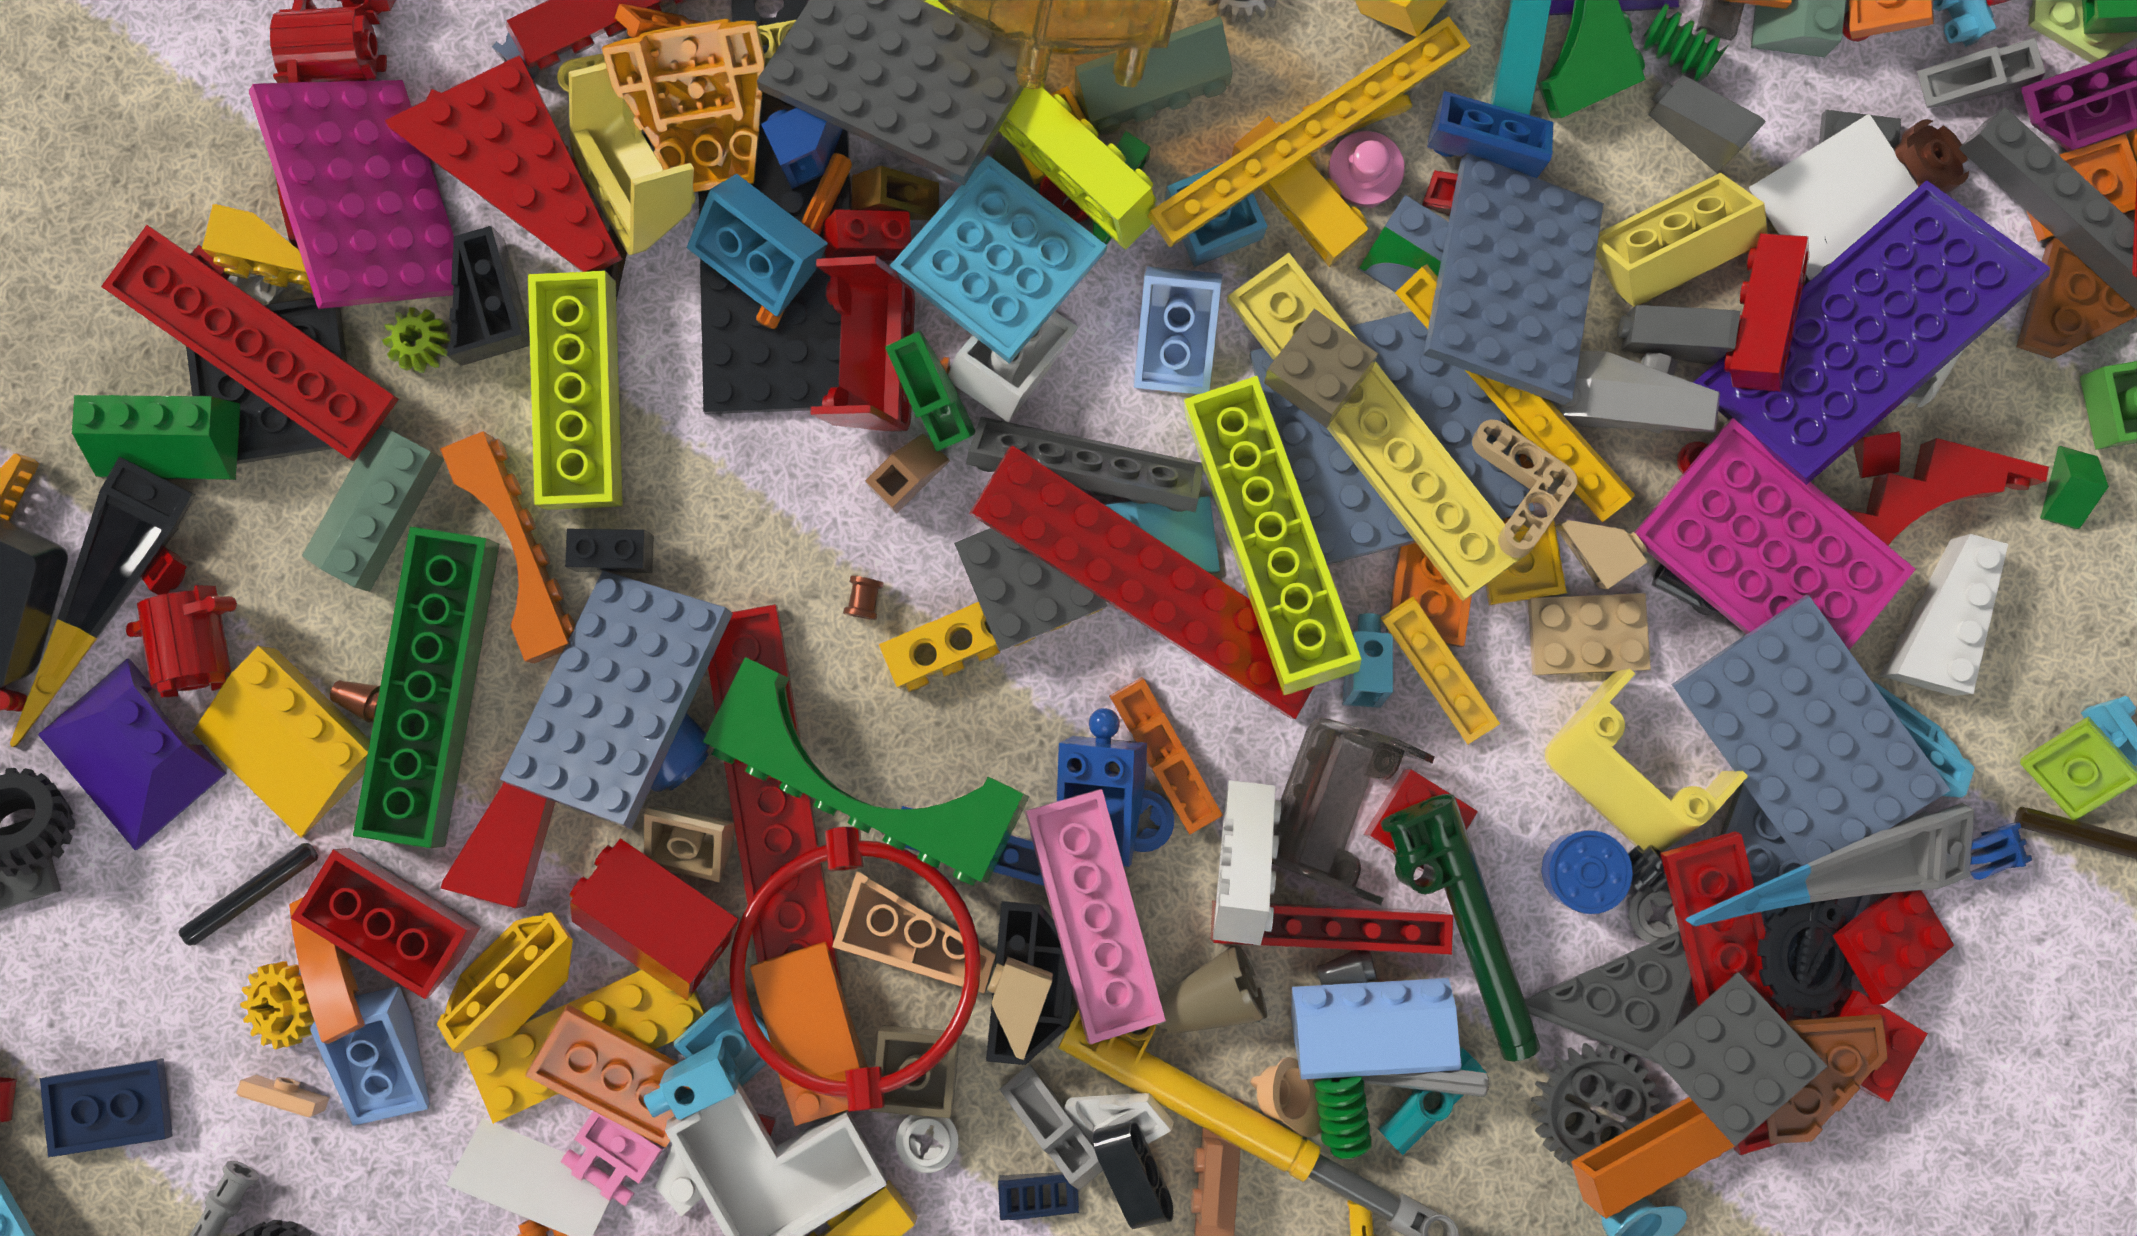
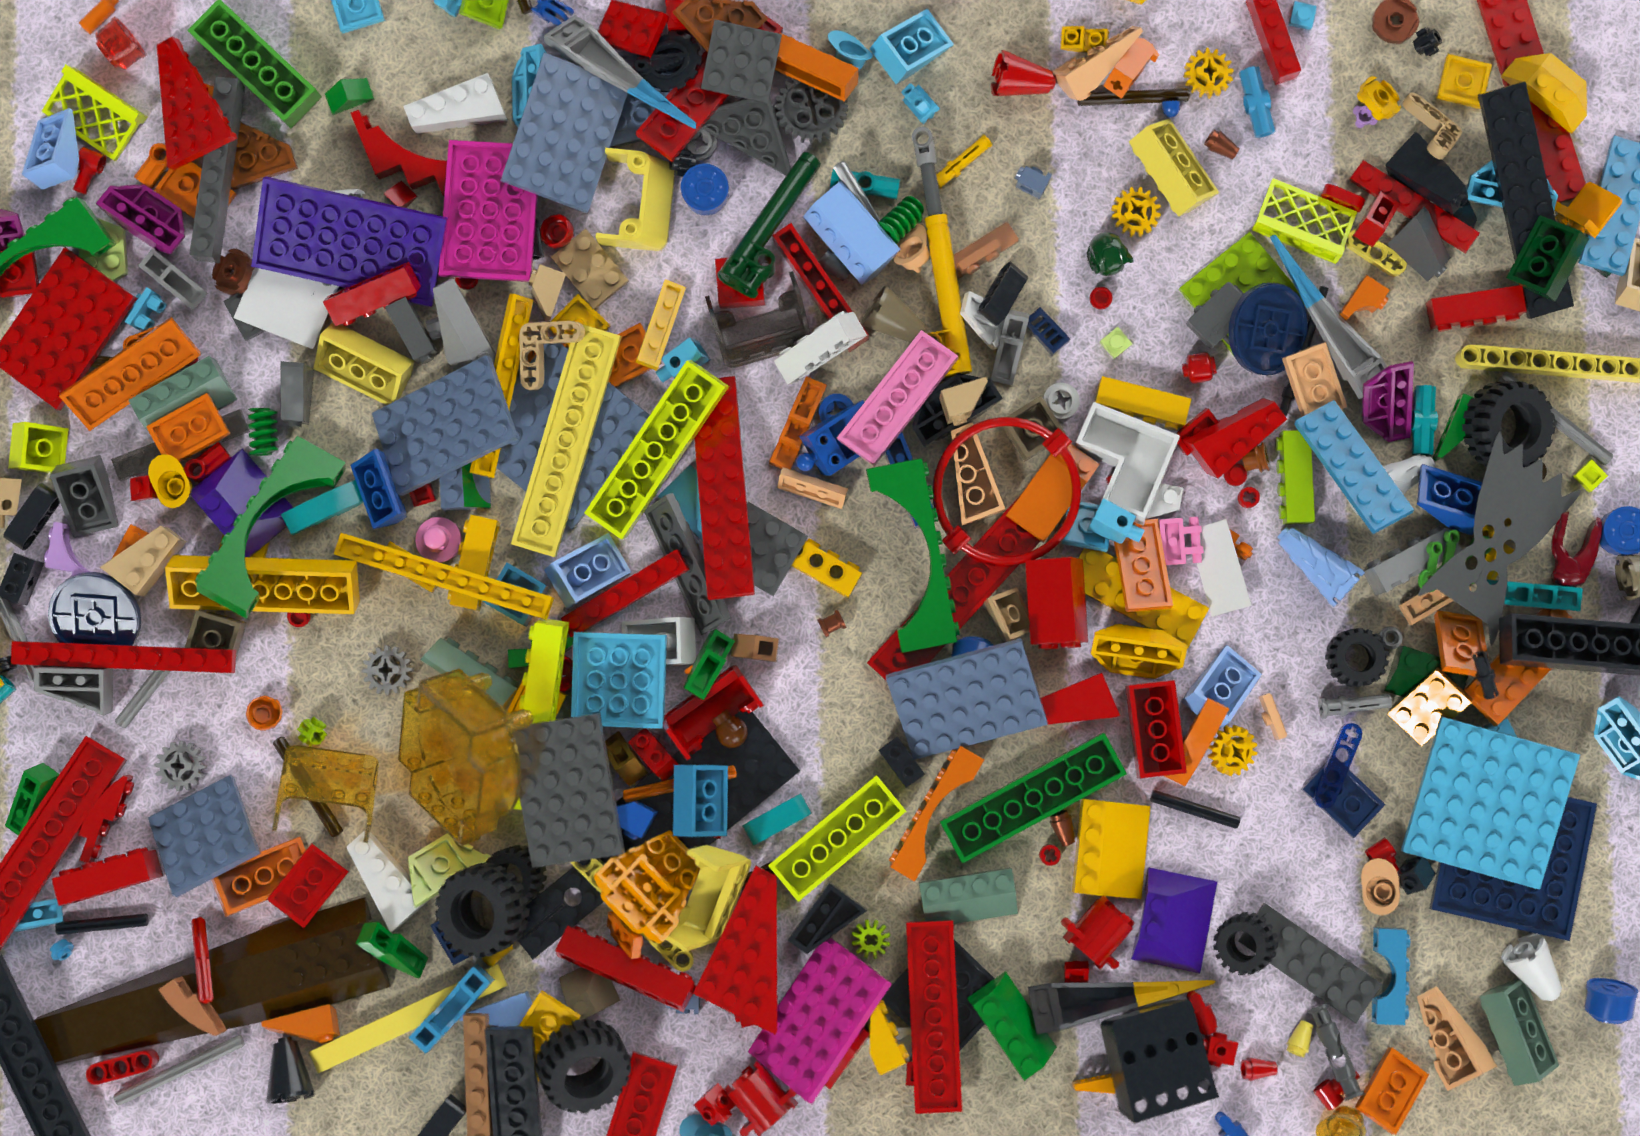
camera: 120 degrees left, 0 degrees up
(138, 1136) = (1334, 764): none -> clear blue beam
(330, 648) = (1042, 856): none -> red bush
(663, 334) = (776, 819): none -> teal beam
(821, 355) = (730, 730): none -> reddish brown piece
(1064, 708) = (812, 488): none -> light nougat plate
(1109, 355) = (626, 592): none -> red plate
(1320, 368) = (559, 483): dark tan brick -> none
(1675, 626) = (557, 231): none -> red hair

